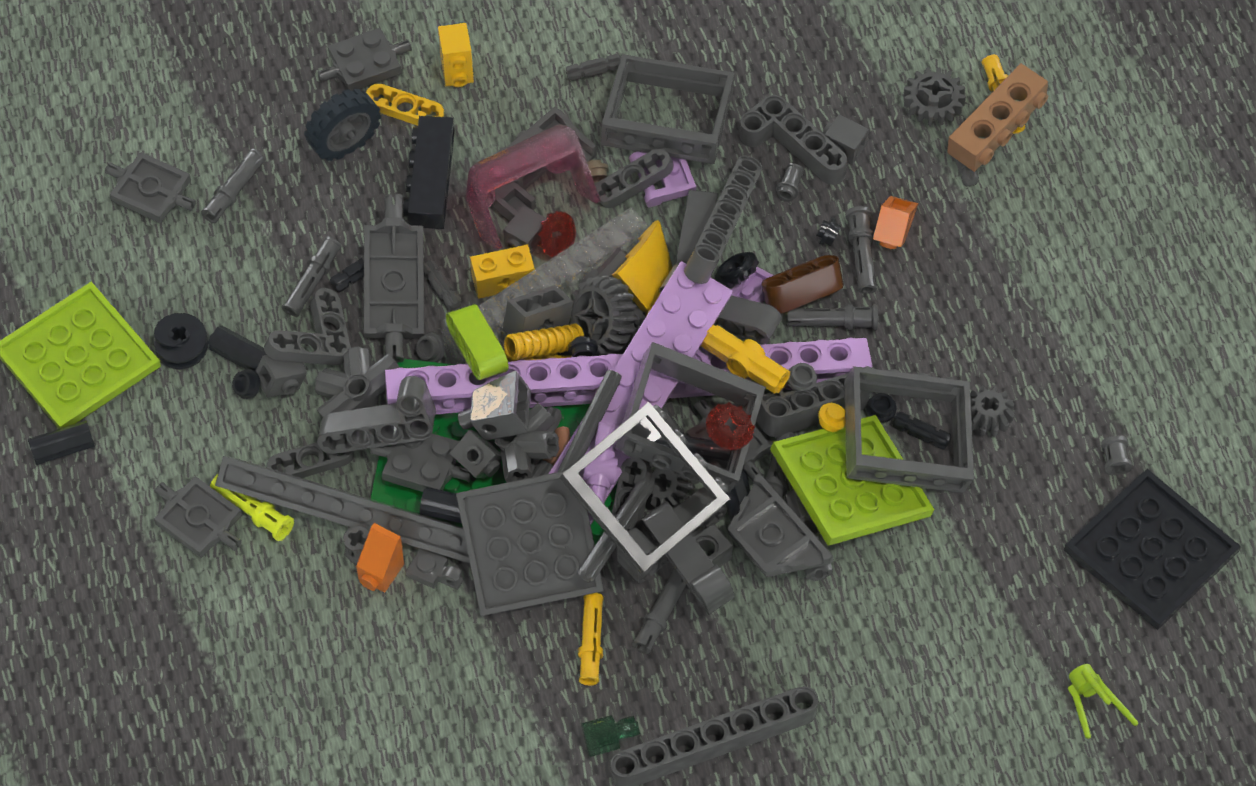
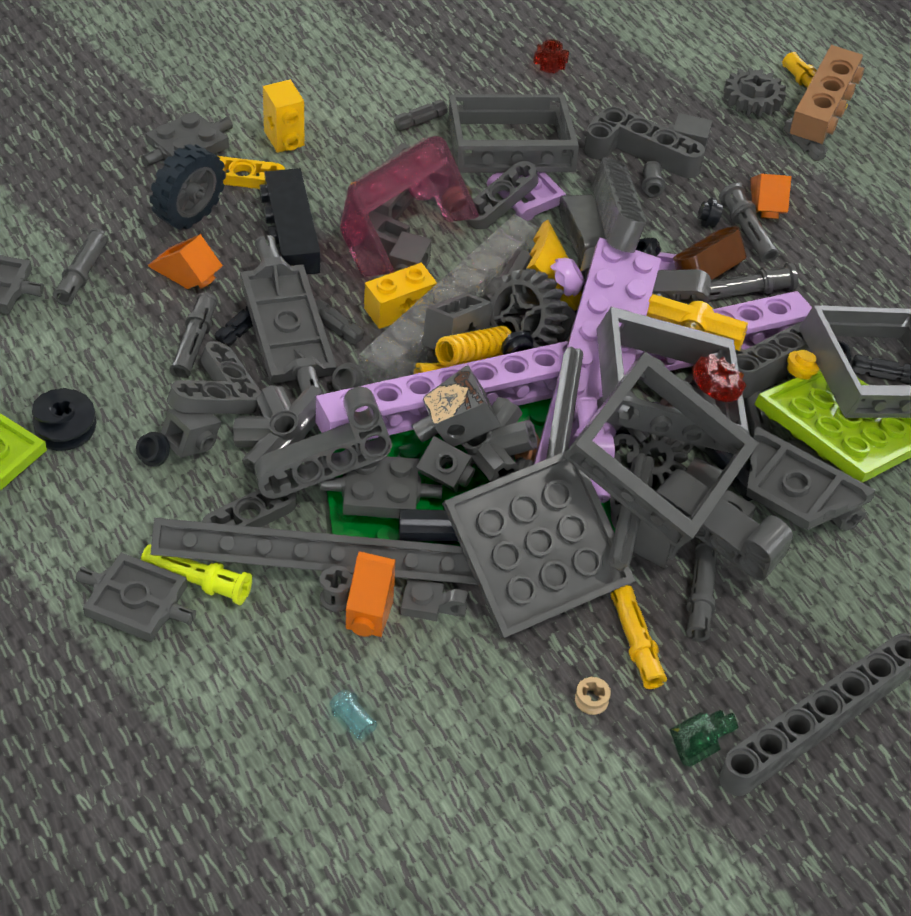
camera: 20 degrees left, 10 degrees down
(236, 348) = (130, 415): black axle -> none
(325, 201) = (188, 263): none -> orange slope
(338, 653) = (352, 713): none -> clear light blue pin
(477, 342) = (409, 351): lime beam -> none
(543, 676) = (600, 689): none -> tan bush
(559, 222) = (441, 243): clear red gear -> none
(644, 290) = (568, 275): none -> lavender plate
(745, 18) = (551, 56): none -> clear red gear
(802, 377) = (758, 332): dark grey plate -> none

